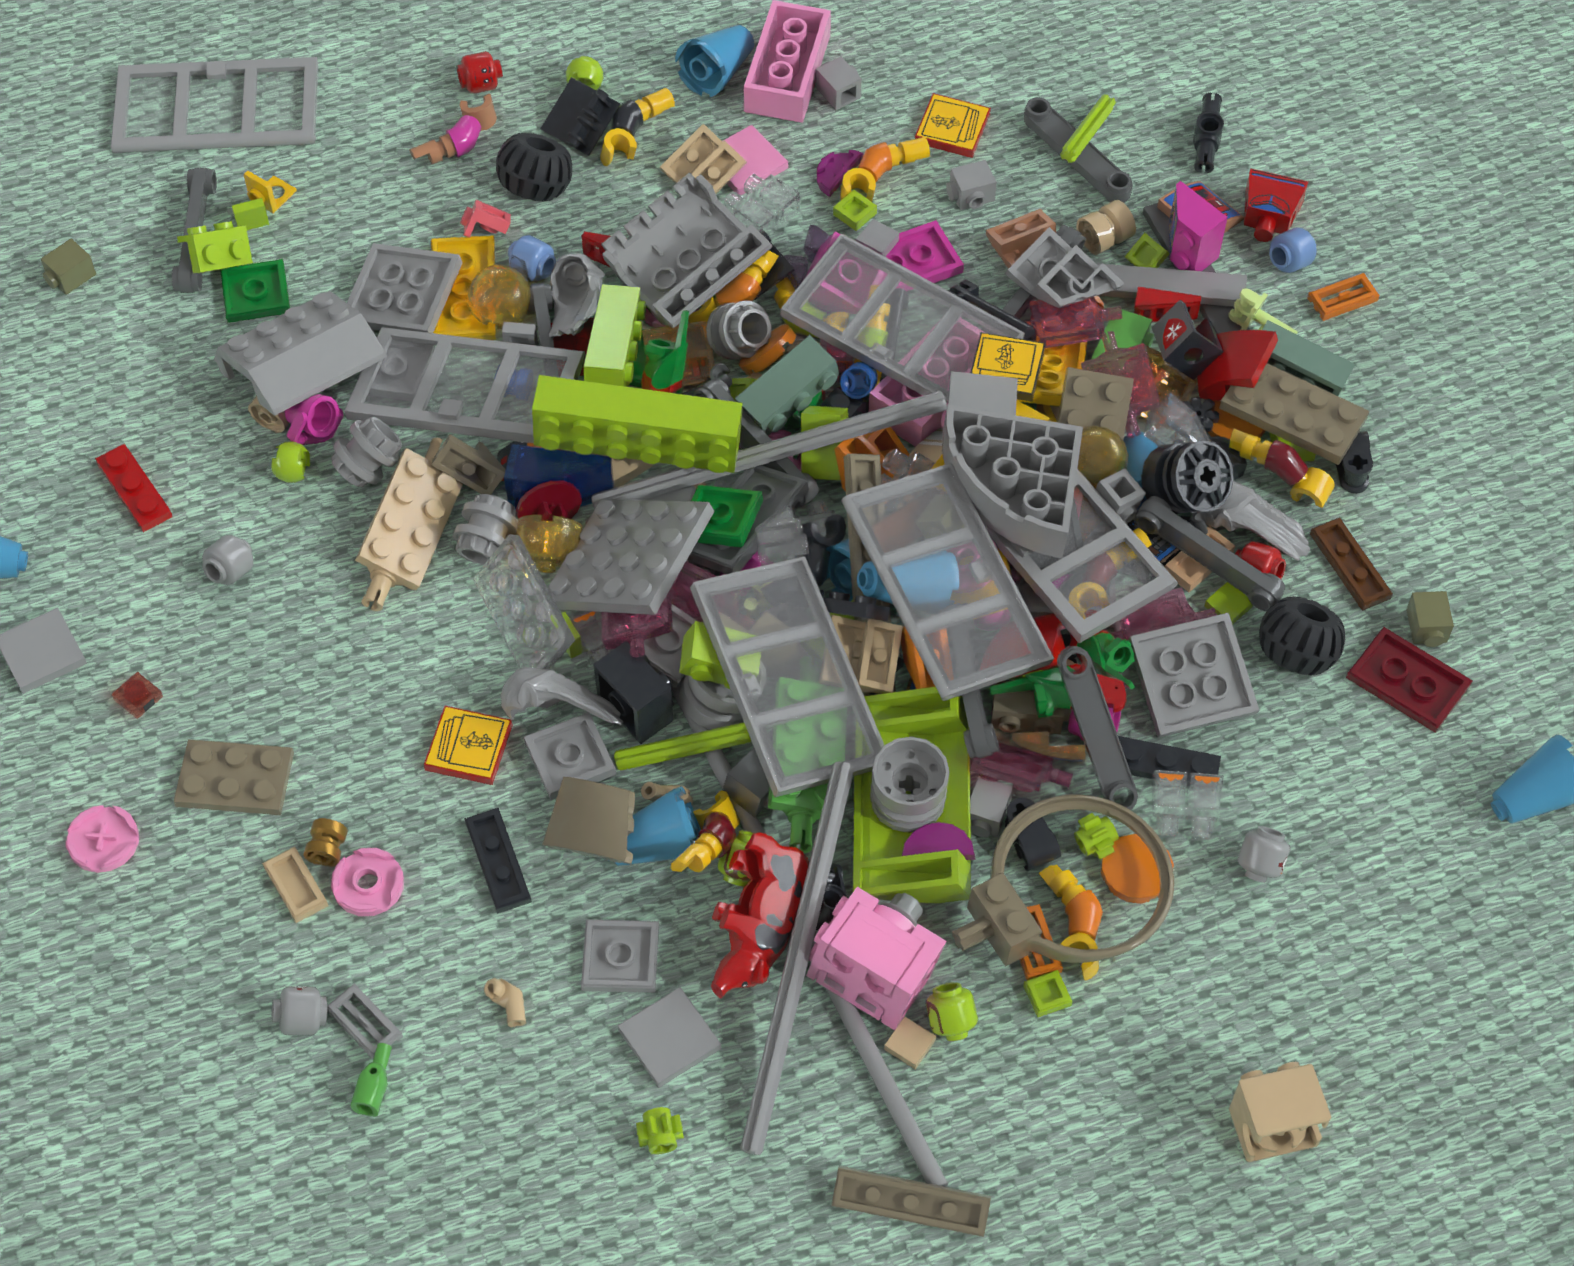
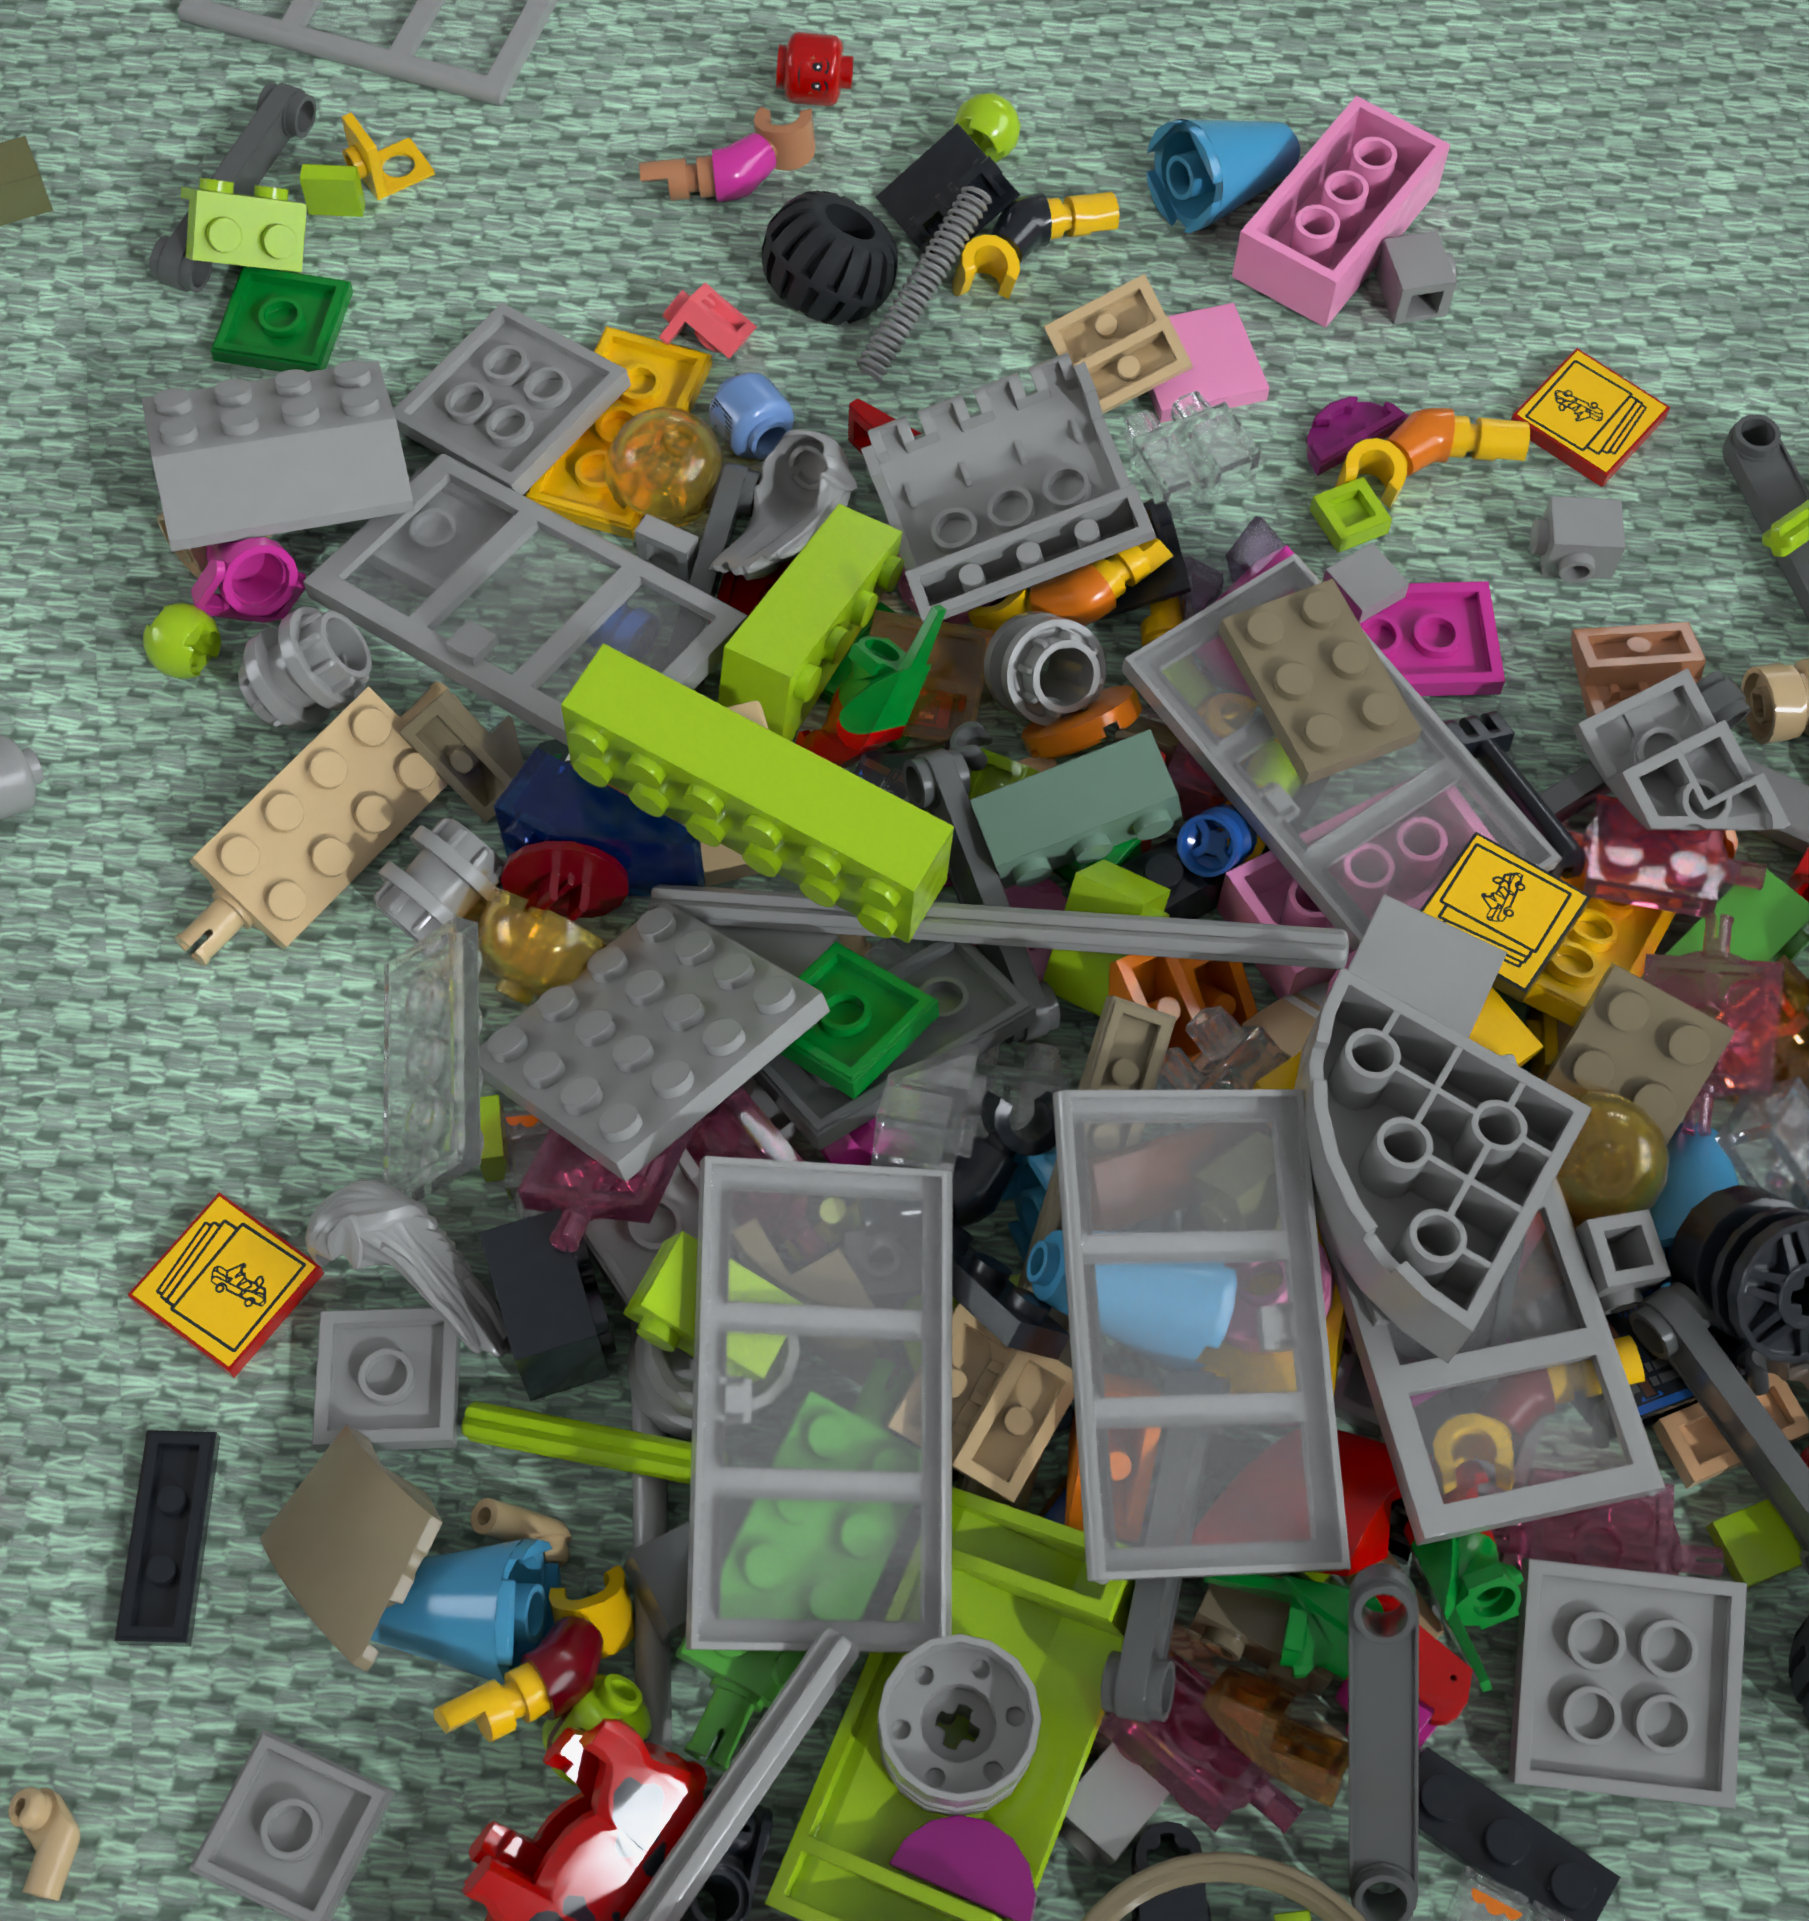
camera: 20 degrees right, 5 degrees up
(588, 147) = (926, 284): none -> light grey piece
(878, 288) = (1319, 681): none -> dark tan plate

